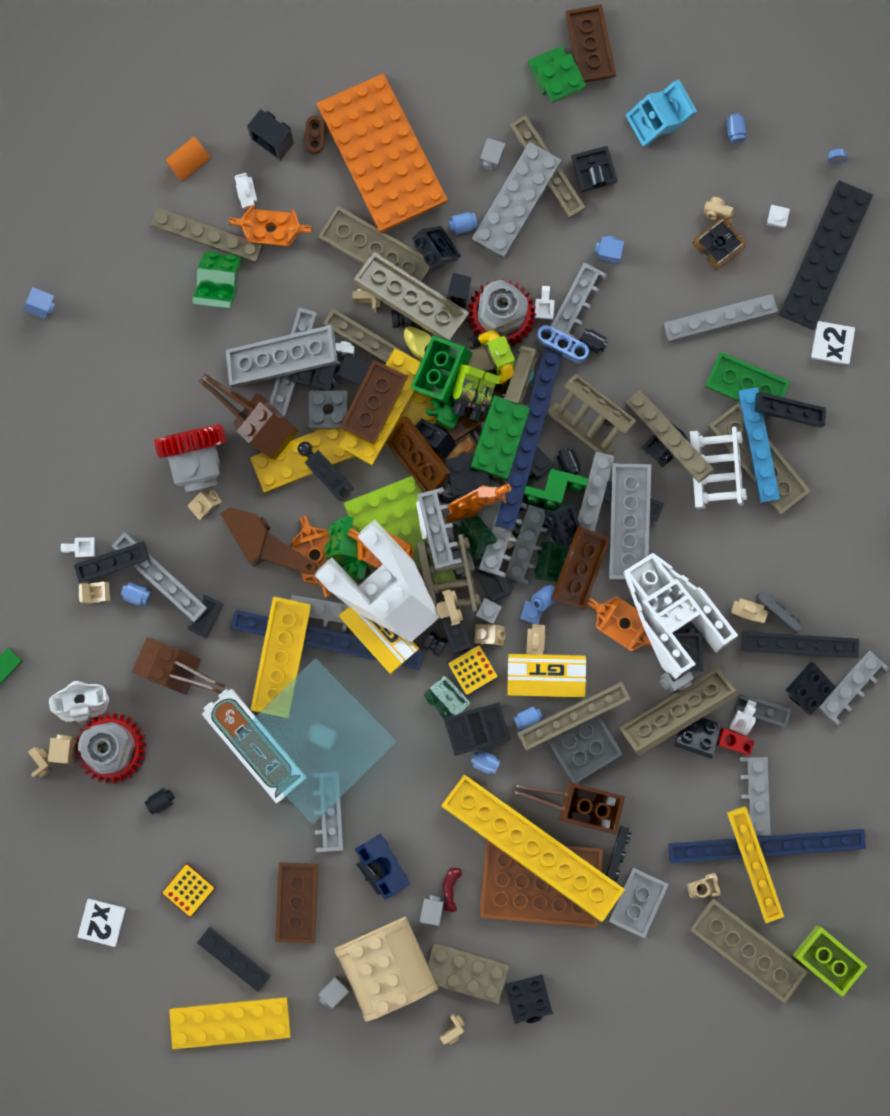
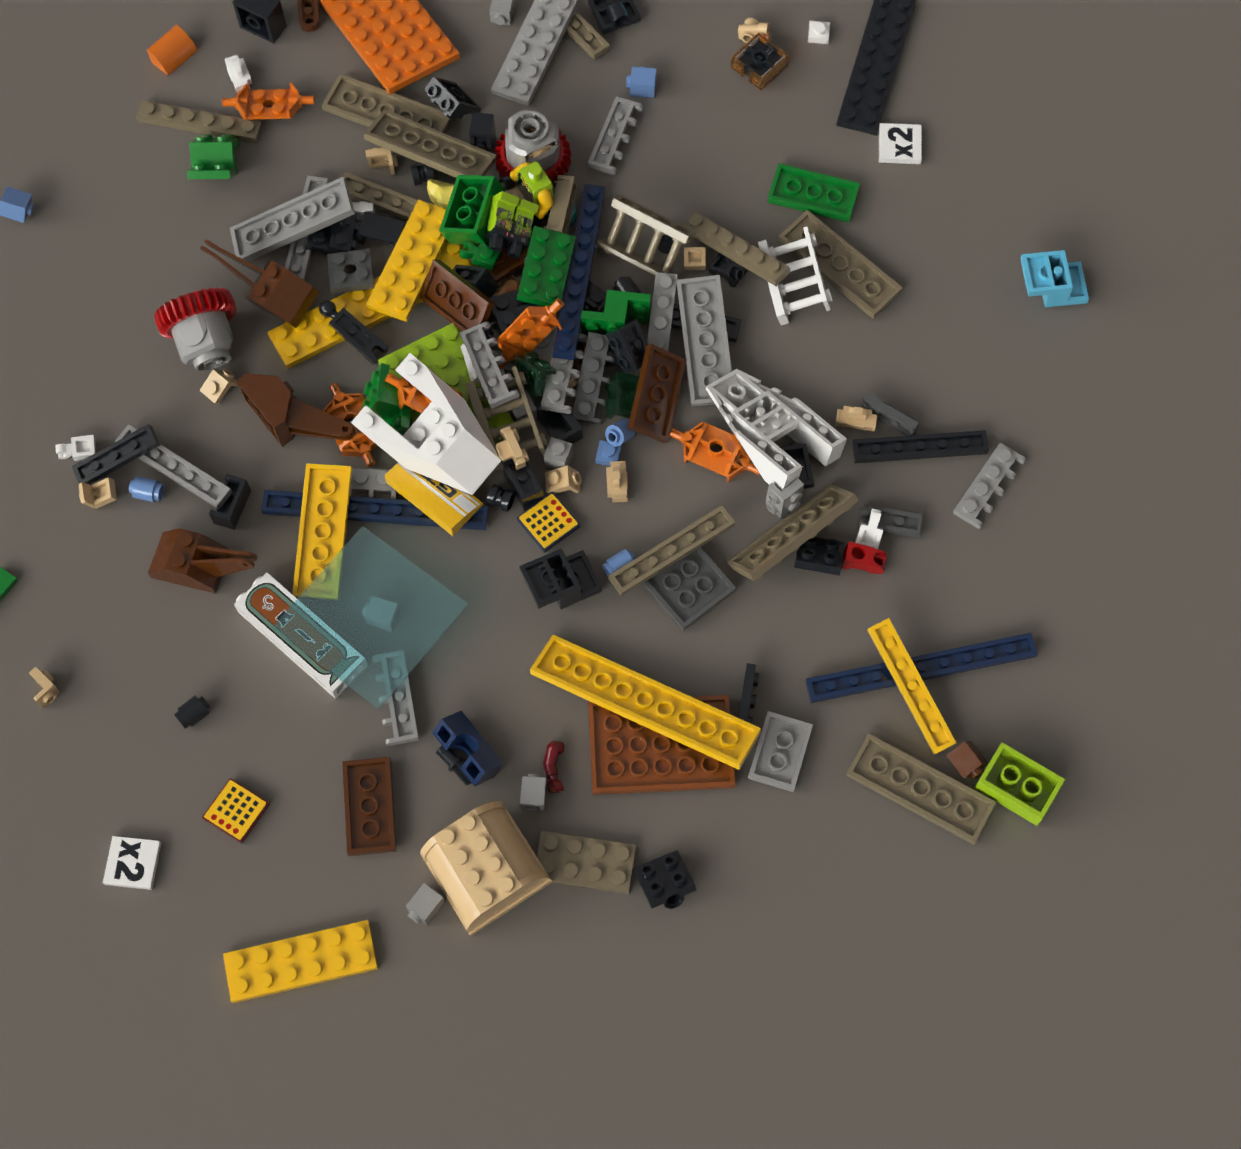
camera: 10 degrees left, 15 degrees down
(62, 749) = (70, 665): tan brick -> none
(64, 703) = (88, 613): white piece -> none
(111, 748) = (128, 658): light grey piece -> none
(233, 959) = (298, 884): black plate -> none
(374, 402) = (400, 251): reddish brown plate -> none
(446, 698) = (516, 551): bracket -> none
(452, 1034) = (577, 934): tan bracket -> none
(463, 223) = (479, 75): medium blue brick -> none
(485, 762) = (576, 618): medium blue brick -> none
(544, 306) = (578, 143): white plate -> none
(546, 675) = (634, 513): yellow slope -> none
(557, 336) = (597, 170): light blue beam -> none
(584, 806) = (697, 646): reddish brown slope -> none
(594, 340) = (638, 170): black brick -> none
(632, 437) = (694, 258): none -> tan plate
(707, 885) = (856, 723): tan plate -> none
(720, 318) = (773, 134): light grey plate -> none
(758, 447) = (837, 248): dark azure plate -> none
(758, 794) = (900, 609): light grey hinge -> none
(790, 409) = (864, 207): black plate -> none
(791, 933) = (967, 760): none -> reddish brown brick
(810, 688) = (939, 489): black plate -> none

